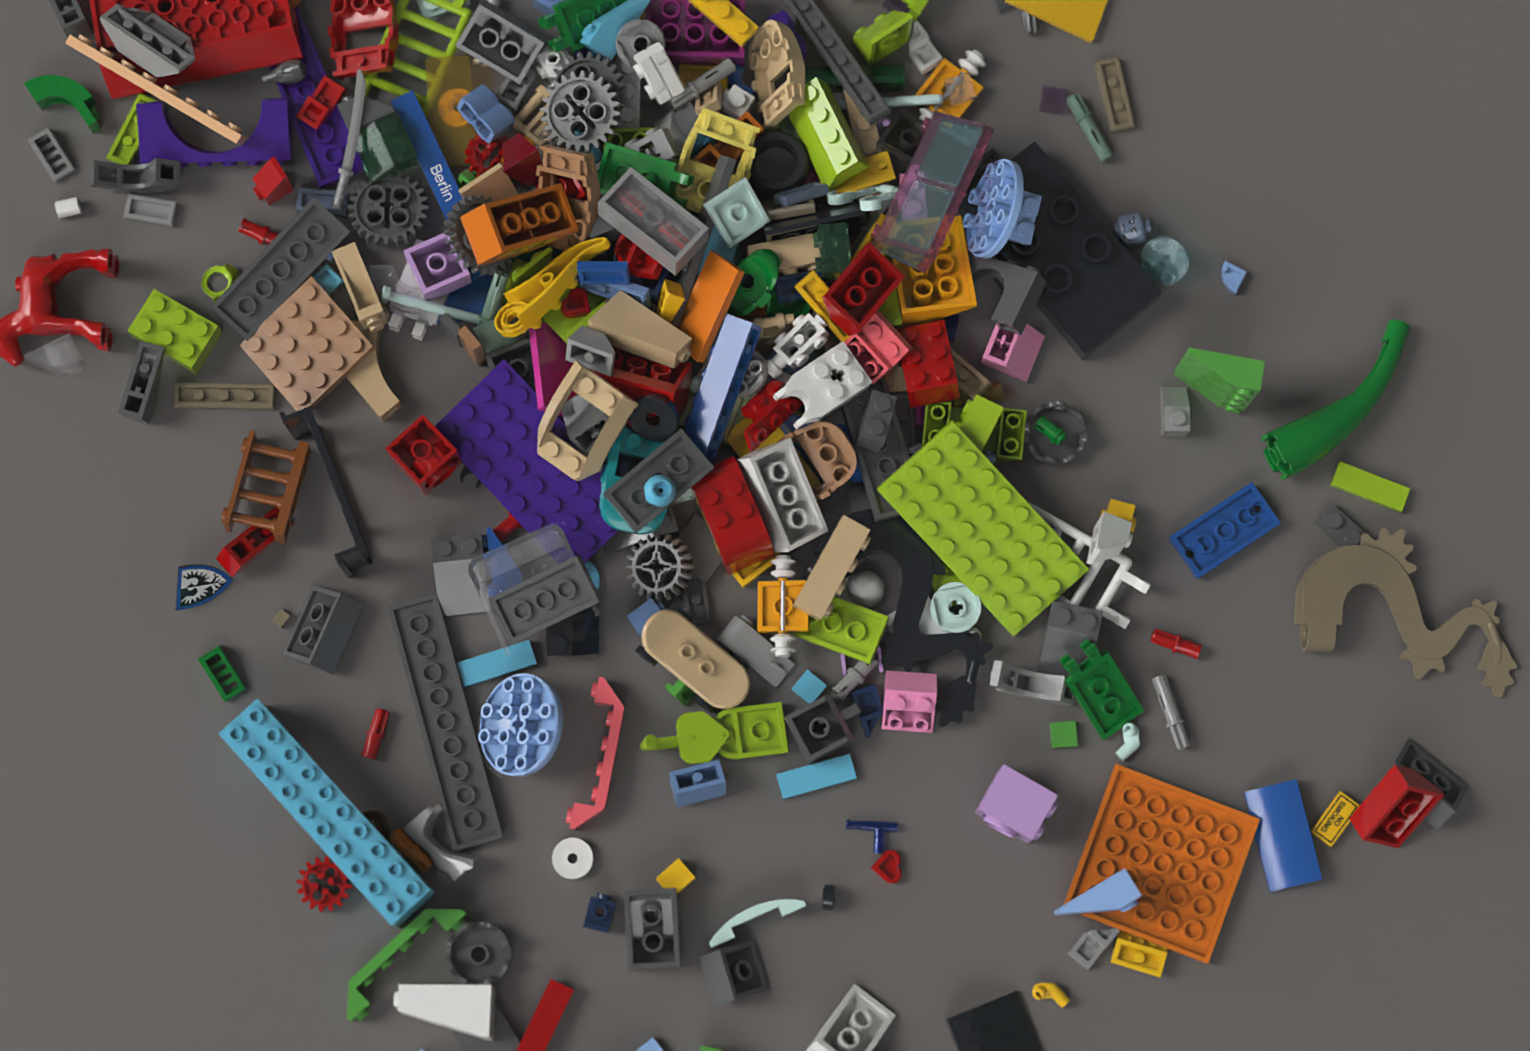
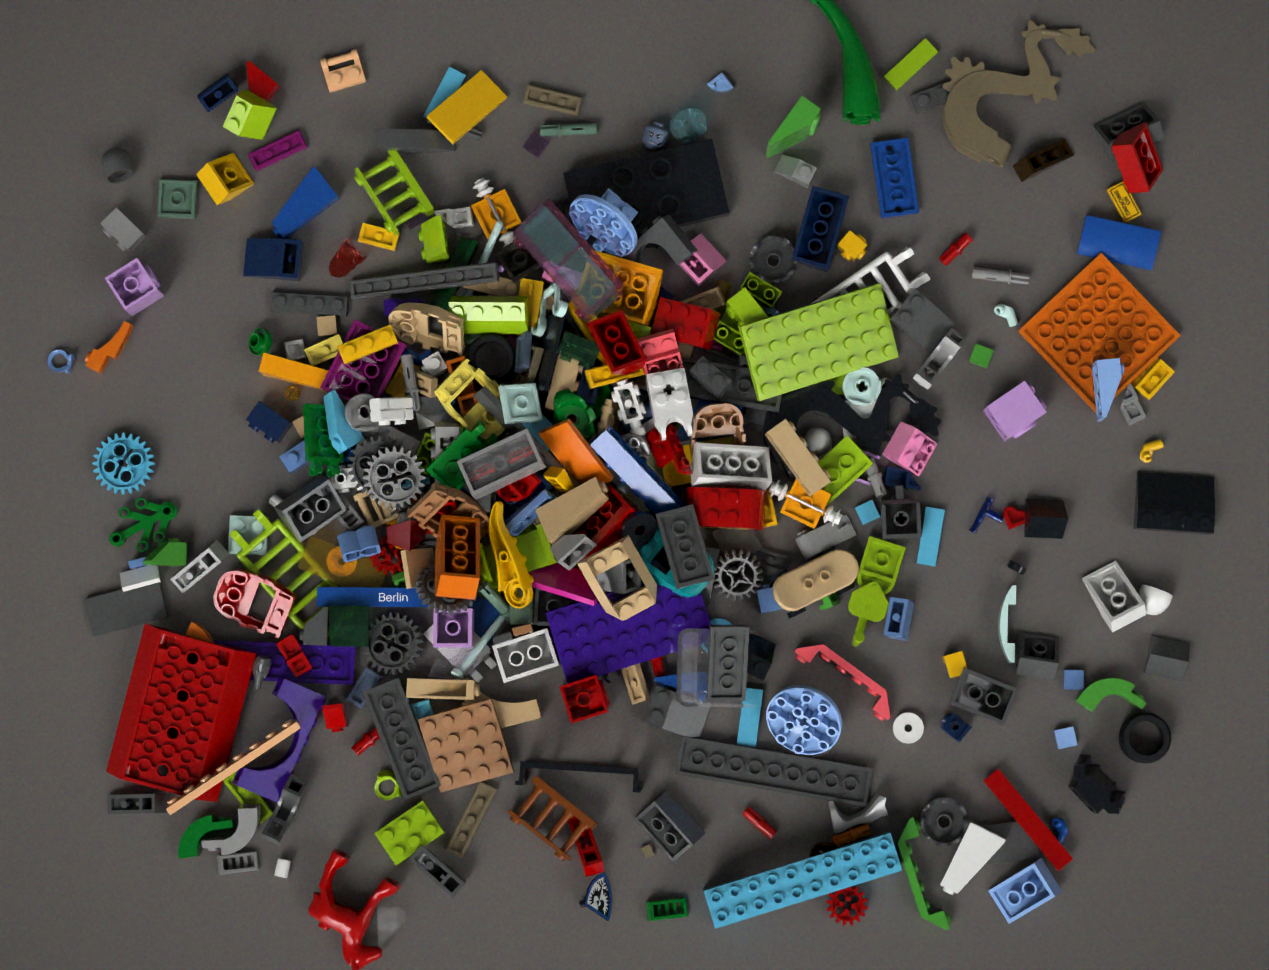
camera: 55 degrees left, 5 degrees up
(94, 144) = (248, 824): none -> light grey arch
(148, 40) = (197, 754): light grey wedge -> none
(150, 210) = (312, 811): light grey tile -> none
(346, 170) = (353, 660): light grey sword -> none
(444, 364) = (525, 655): none -> white brick
(473, 510) = (635, 683): none -> tan plate
(575, 304) = (527, 544): red tile -> none
(603, 272) = (519, 515): blue tile -> none
(656, 498) = (696, 554): medium azure plate -> none
(726, 1032) = (1074, 679): none -> medium blue tile
(904, 903) = (1045, 518): none -> black slope
(960, 89) = (499, 205): clear tile -> none
(1050, 430) = (771, 261): green pin -> none
(1101, 690) = (965, 316): green tile -> none
(1109, 538) = (865, 259): white slope -> none
(1119, 470) = (820, 228): none -> dark blue slope
(1336, 696) = (1042, 160): none -> dark brown slope

